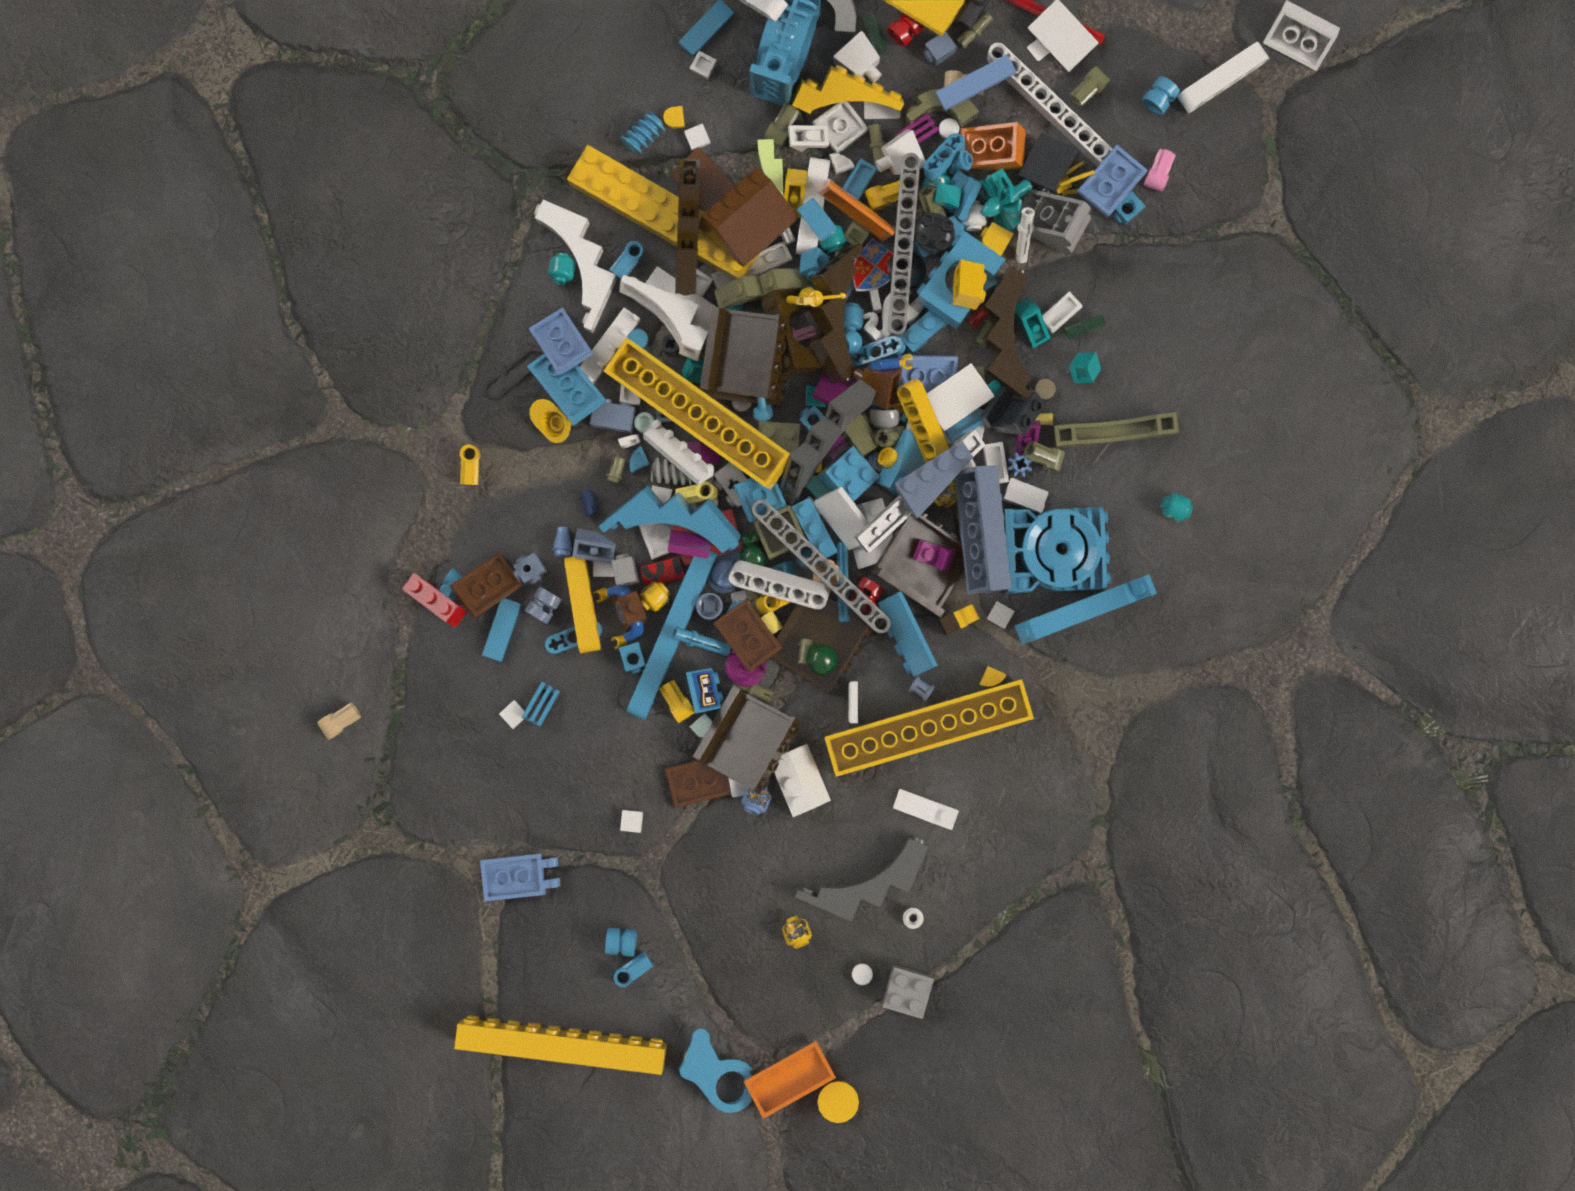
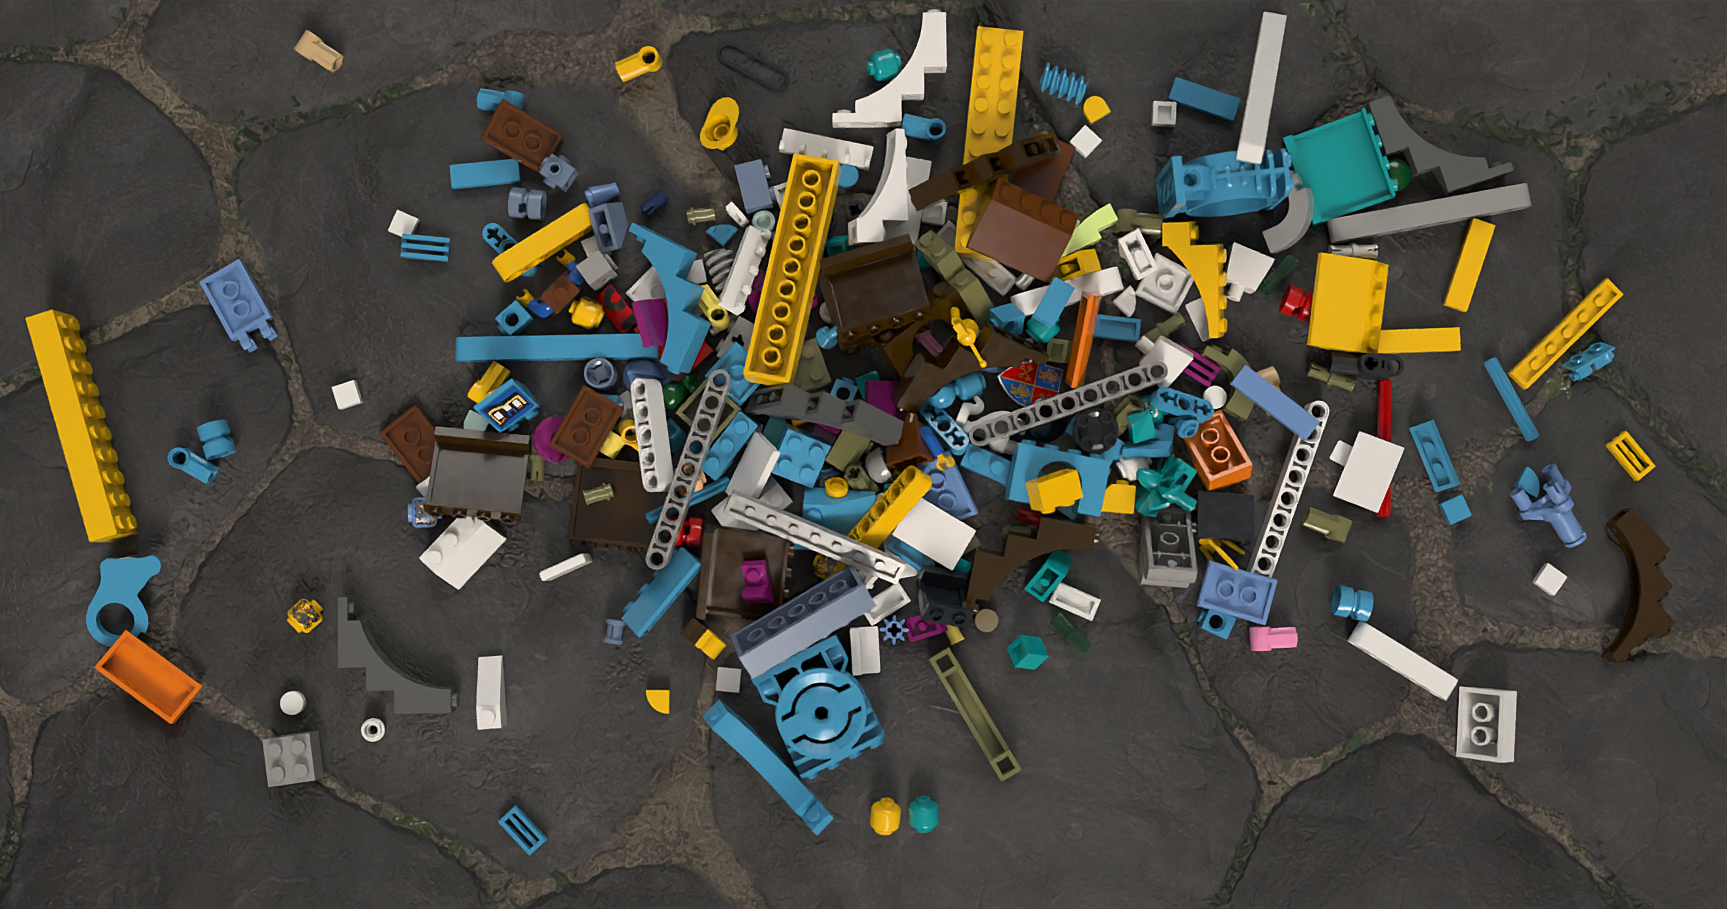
camera: 60 degrees right, 0 degrees up
(434, 600) = (484, 78): arch -> none
(560, 341) = (807, 97): medium blue tile -> none
(570, 390) = (765, 123): dark azure plate -> none
(692, 639) = (558, 373): dark azure pin -> none
(821, 658) = (597, 514): dark green hair -> none
(838, 1101) = (150, 737): yellow tile -> none
(875, 301) = (996, 402): white tile -> none
(880, 197) = (1111, 359): yellow piece -> none
(928, 481) = (829, 542): sand blue wing -> none
(928, 727) = (574, 657): yellow brick -> none
(939, 49) = (1293, 349): sand blue brick -> none
(1025, 229) = (1143, 523): white pin -> none
(1030, 838) = (542, 838): none -> dark azure tile
(1048, 457) = (915, 655): olive piece -> none
(1164, 538) = (885, 816): none -> yellow head

